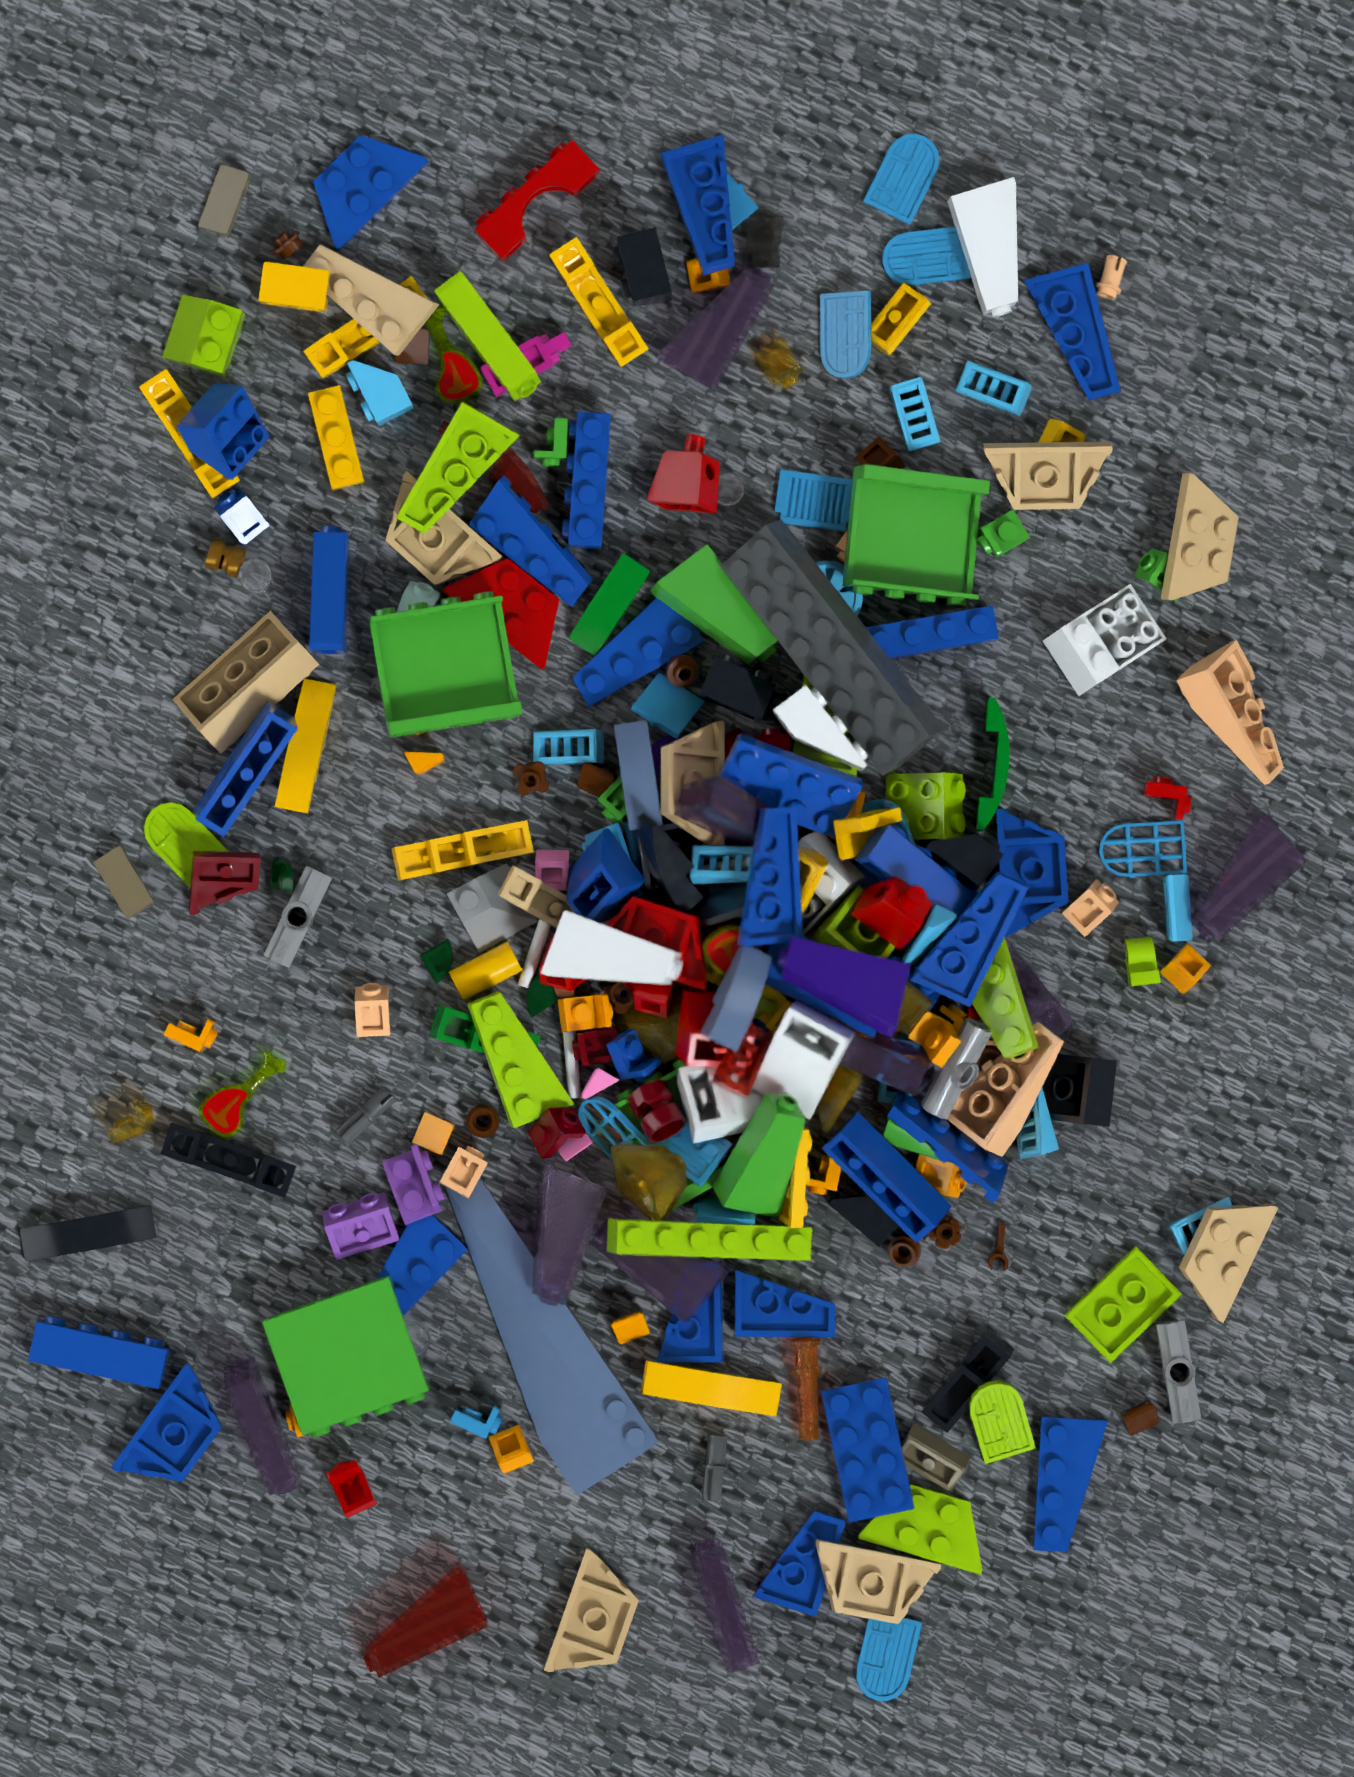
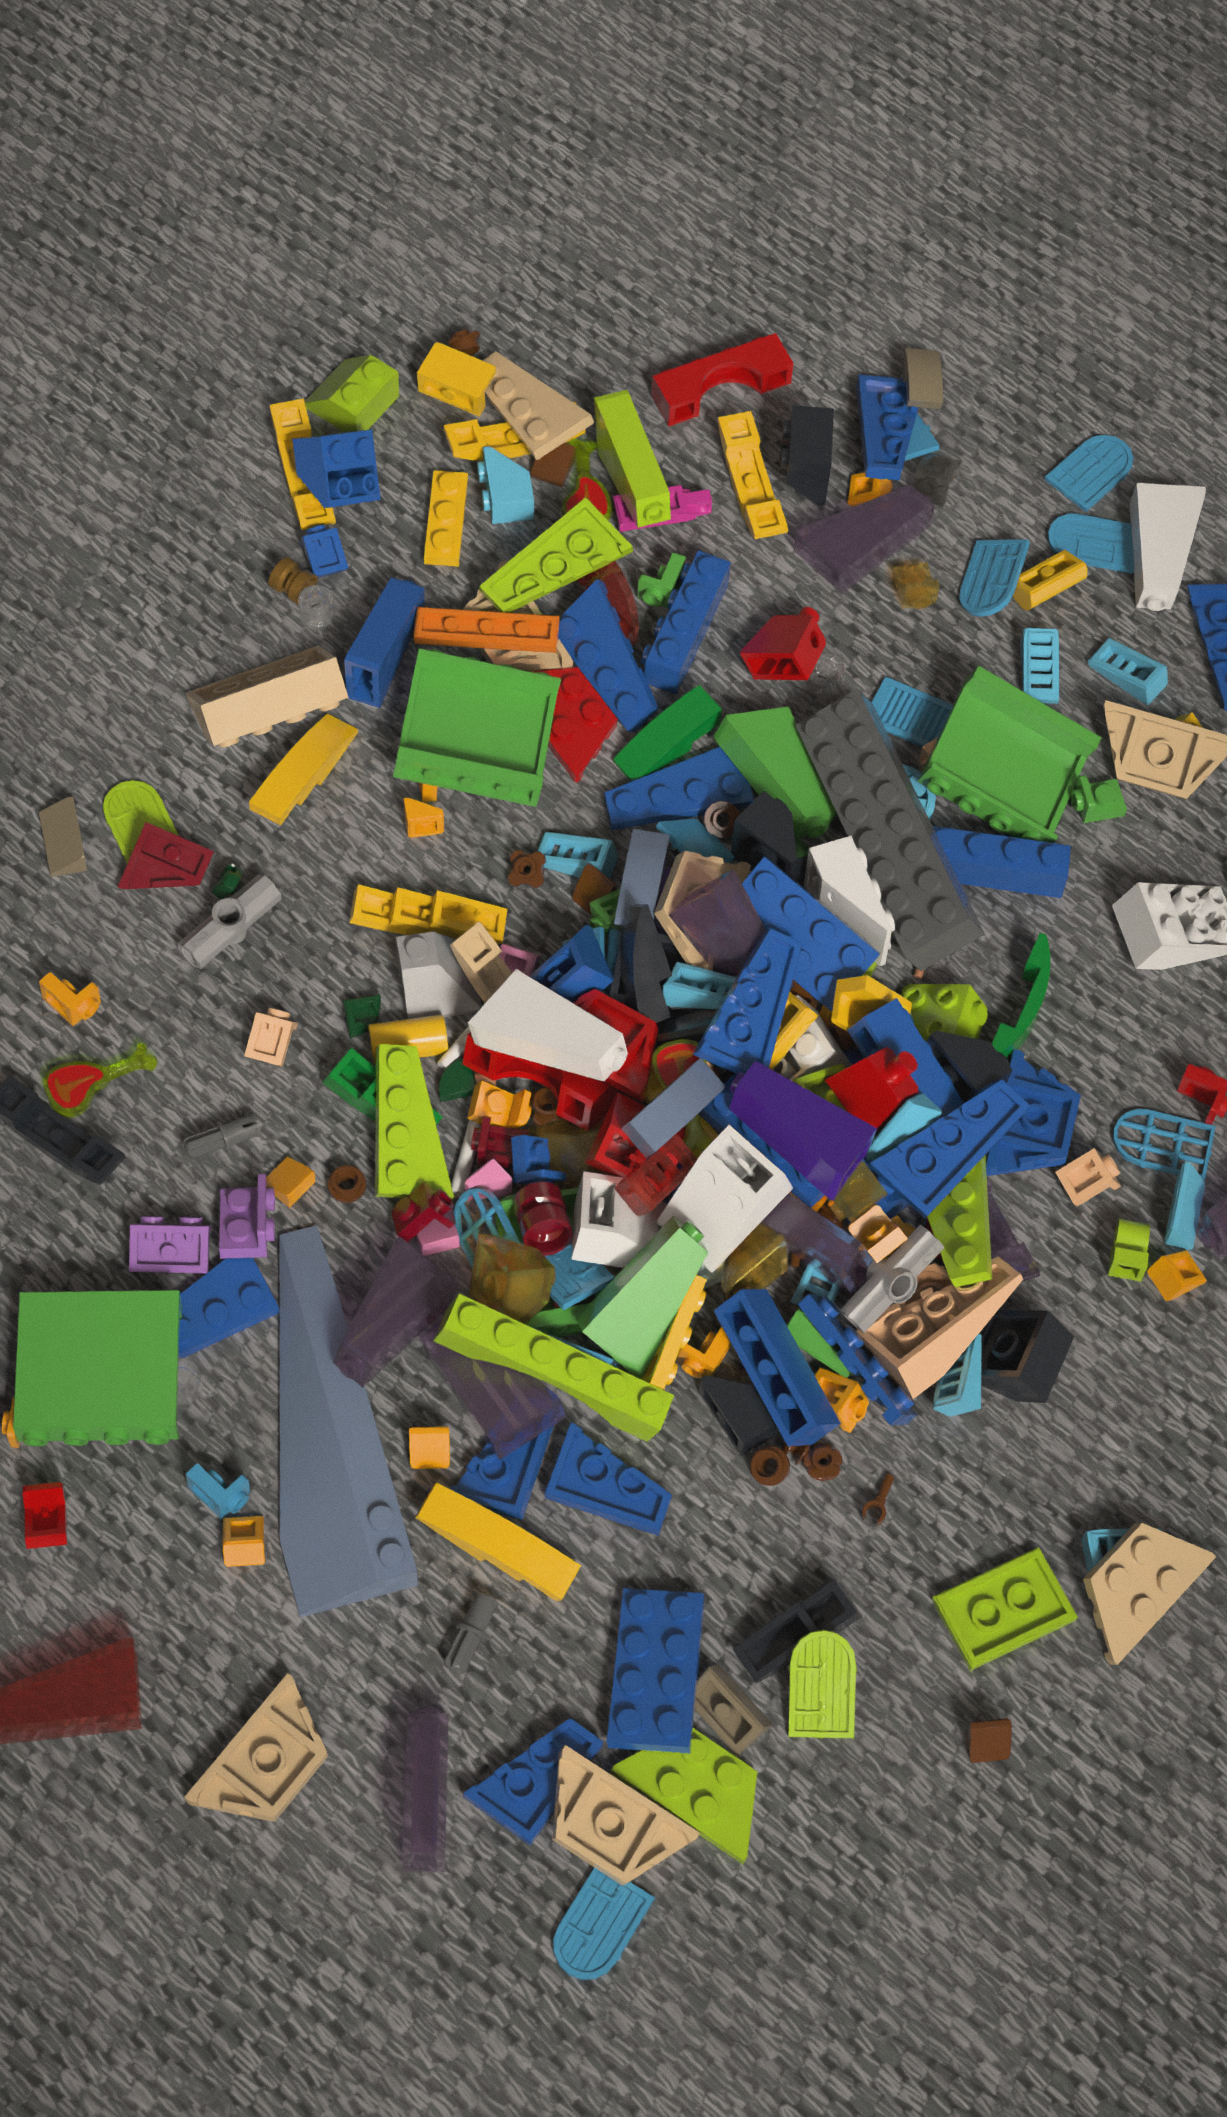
camera: 20 degrees right, 25 degrees down
(225, 200) = (419, 297): dark tan slope -> none
(245, 768) = (233, 760): blue brick -> none
(363, 183) = (558, 322): blue wing -> none
(416, 553) = (486, 629): none -> orange tile
(464, 1171) = (306, 1220): light nougat bracket -> none
(722, 139) = (923, 378): none -> dark tan slope
(806, 1372) = (613, 1562): clear orange pin -> none
(1064, 1471) = (880, 1774): blue wing -> none
(1183, 1392) = (1048, 1724): light grey piece -> none

